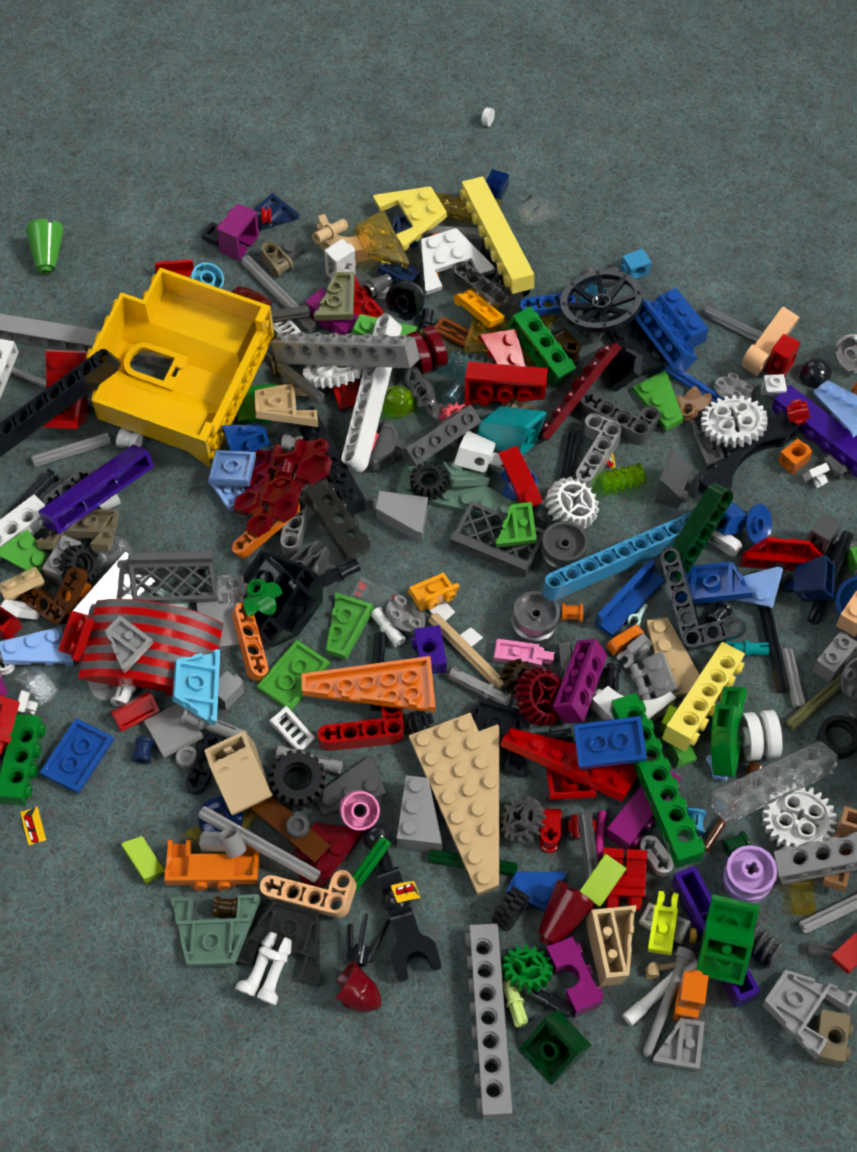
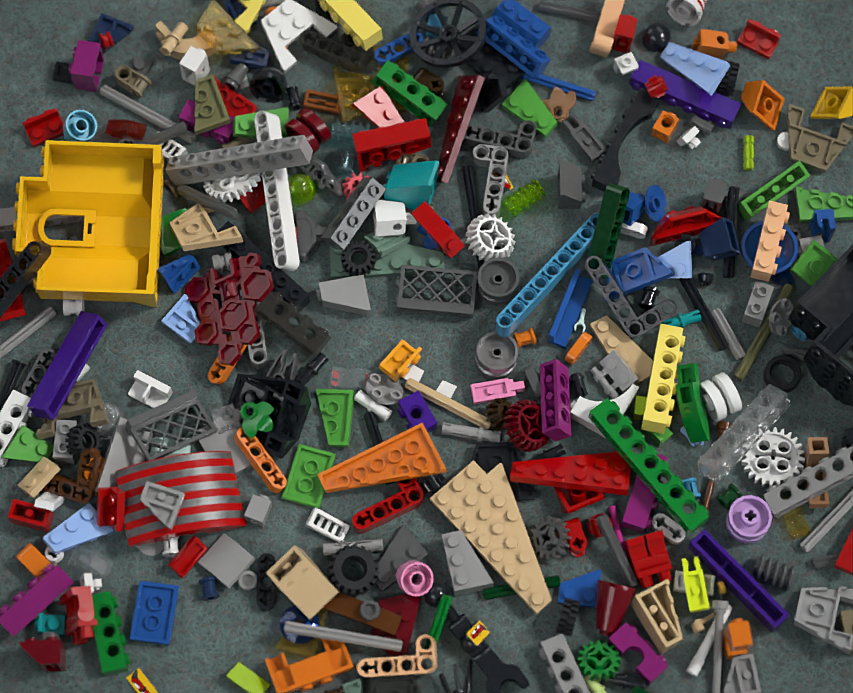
camera: 20 degrees left, 10 degrees up
(168, 538) = (149, 390): none -> white panel
(197, 685) = (236, 517): medium azure wing -> none
(220, 728) = (251, 546): light grey pin -> none
(227, 841) = (317, 644): light grey piece -> none
(232, 468) = (180, 304): medium blue plate -> none
(479, 308) = (339, 72): light orange plate -> none
(518, 526) = (452, 276): bright green wing -> none
(603, 880) = (635, 567): lime slope -> none
(610, 743) = (602, 450): blue plate -> none
(639, 646) = (592, 352): light grey plate -> none
(720, 424) = (589, 120): white gear -> none
(727, 939) = (752, 583): green bracket -> none
(732, 385) = (590, 77): light grey dish -> none
(785, 613) = (705, 277): none -> black hinge

